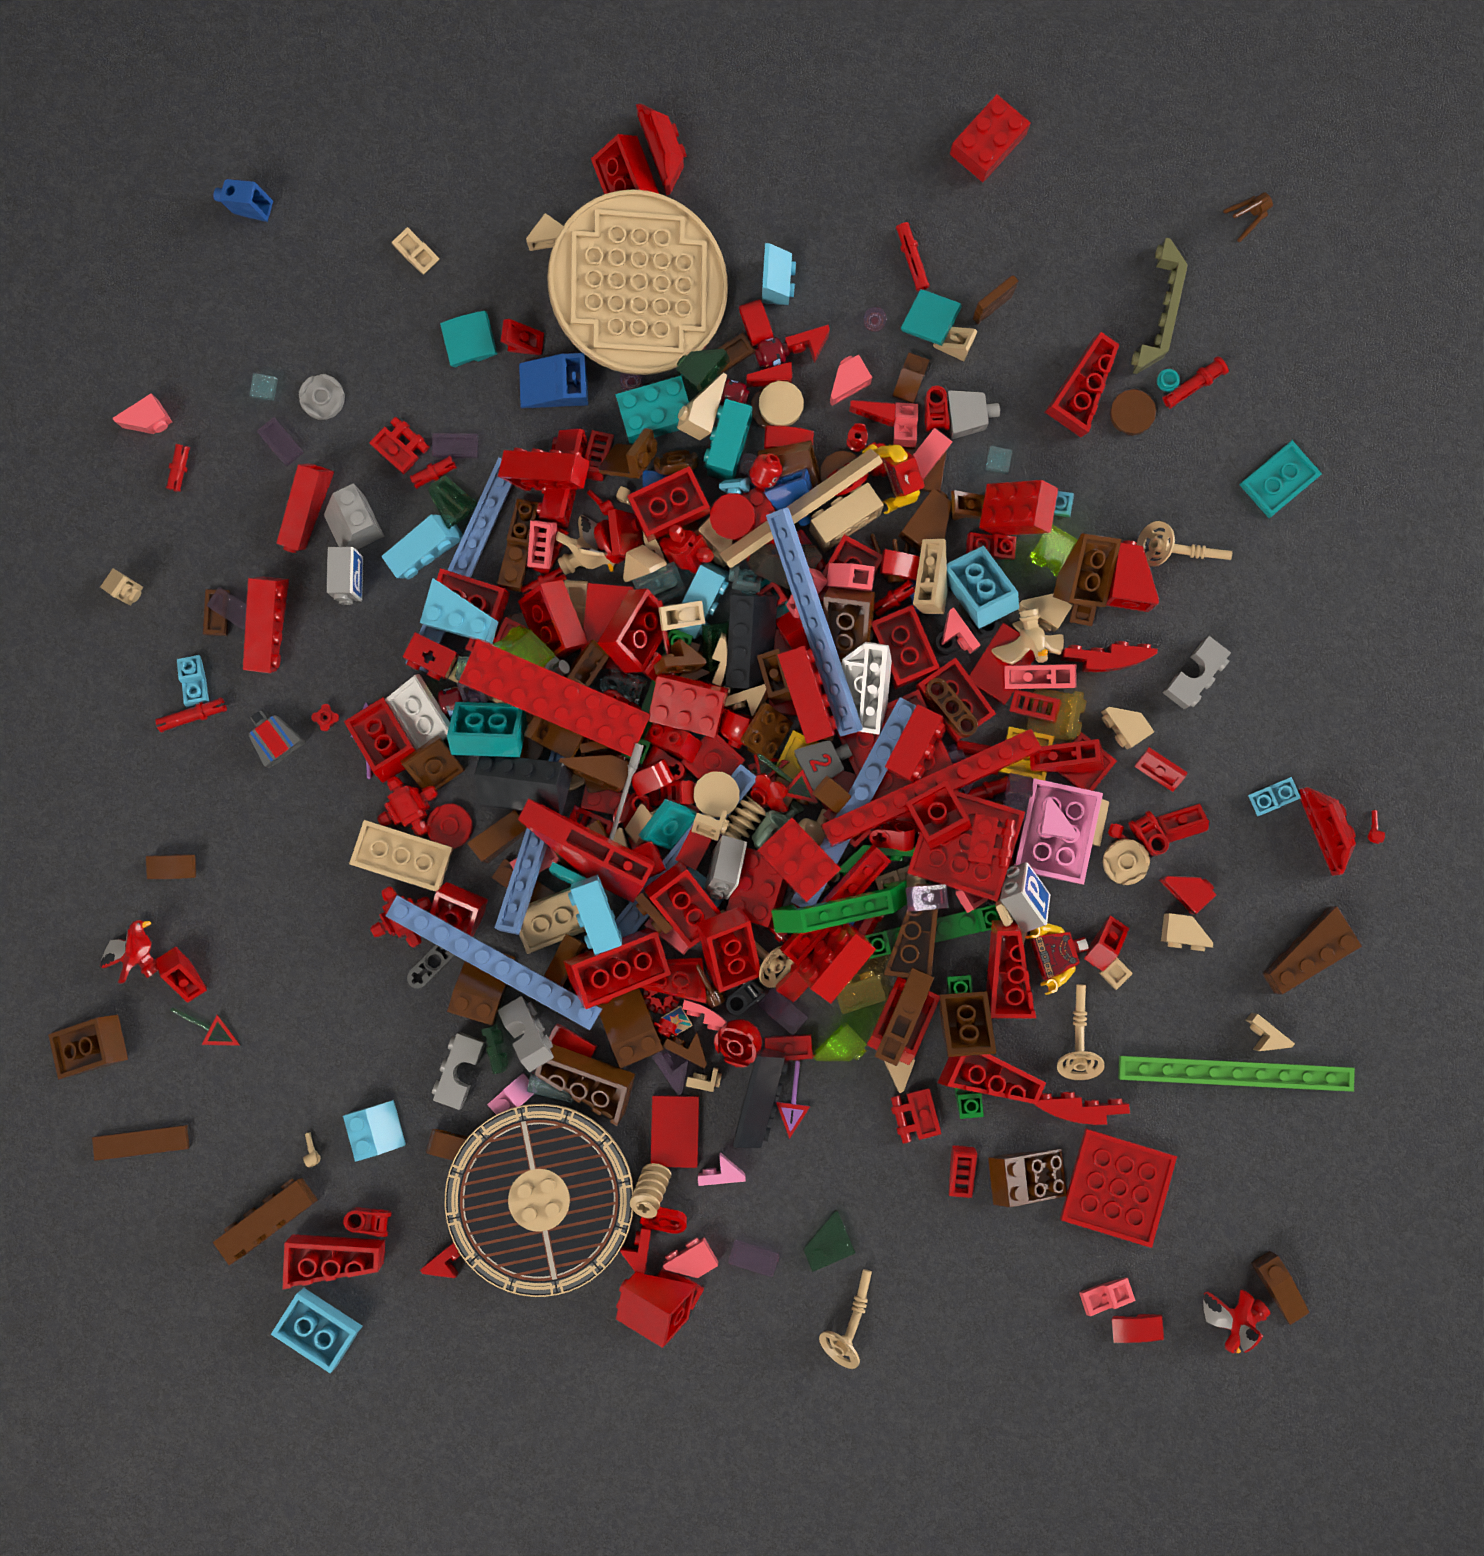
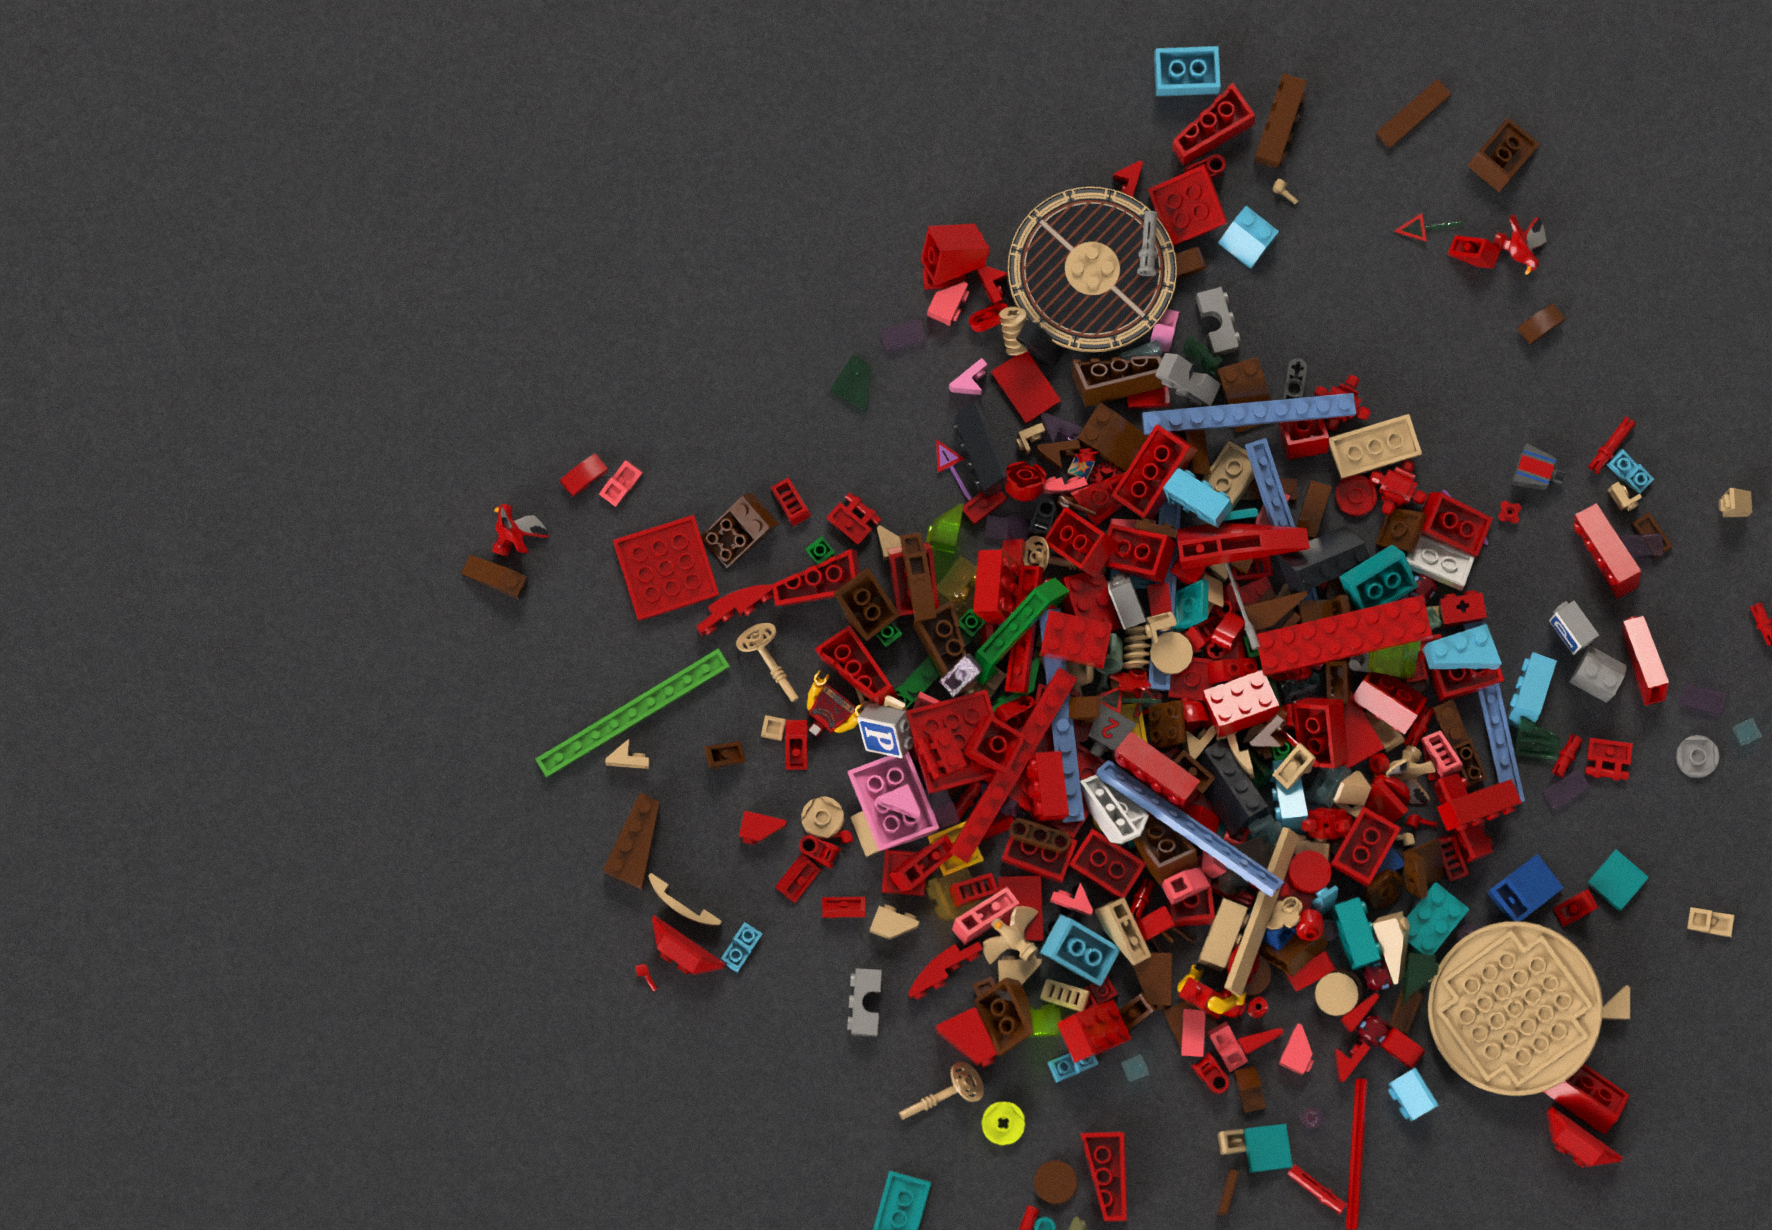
camera: 140 degrees right, 5 degrees down
(218, 663) = (1620, 497): none -> tan bracket
(408, 1199) = (1188, 205): none -> red plate
(478, 1178) = (1146, 255): none -> light grey pin
(602, 573) = (1379, 763): none -> red tile
(637, 1162) = (1039, 344): none -> black beam
(784, 492) = (1285, 913): none -> tan plate
(844, 1343) = (796, 315): tan dish -> none
(857, 263) = (1356, 1154): none -> red axle
(969, 412) = (1184, 1089): light grey torso -> none
(1026, 572) = (1052, 991): none -> tan slope
(1153, 480) = (990, 1123): none -> neon yellow plate
(1180, 977) = (724, 754): none -> reddish brown slope
(1184, 930) = (743, 794): tan slope -> none
(1315, 897) = (704, 918): none -> tan slope

